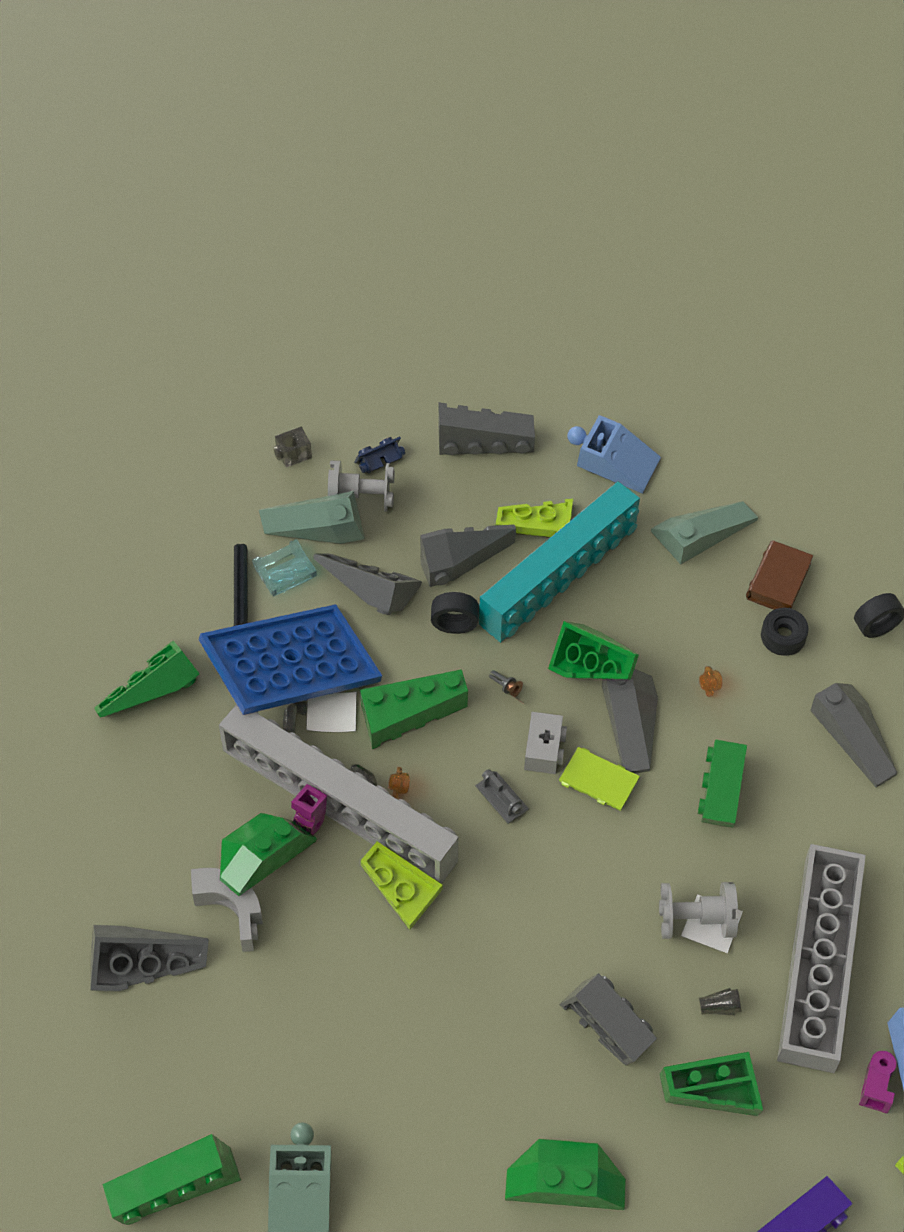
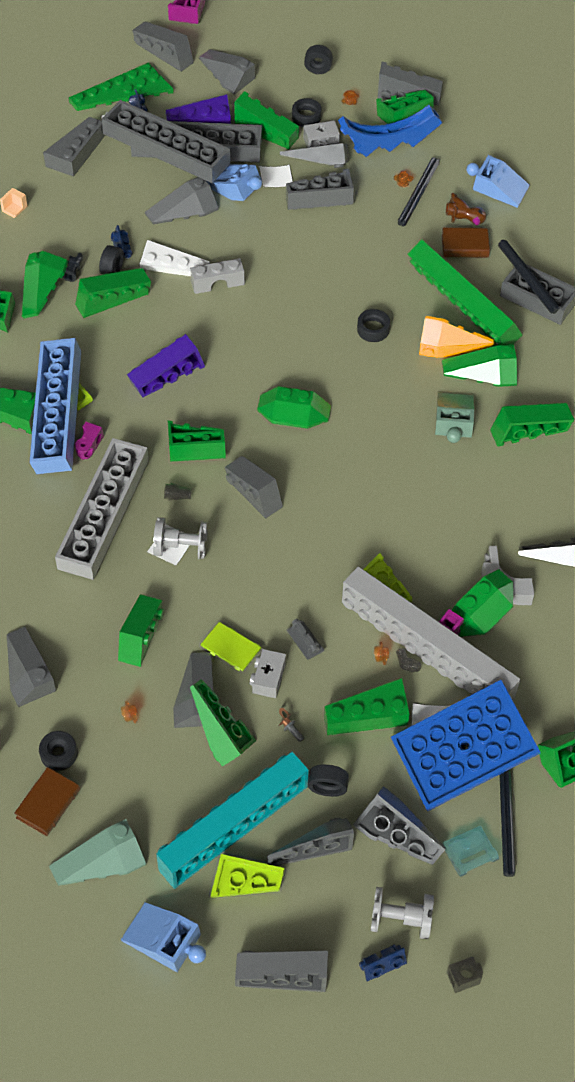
camera: 175 degrees left, 0 degrees up
(319, 519) = (427, 877): sand green wedge -> none

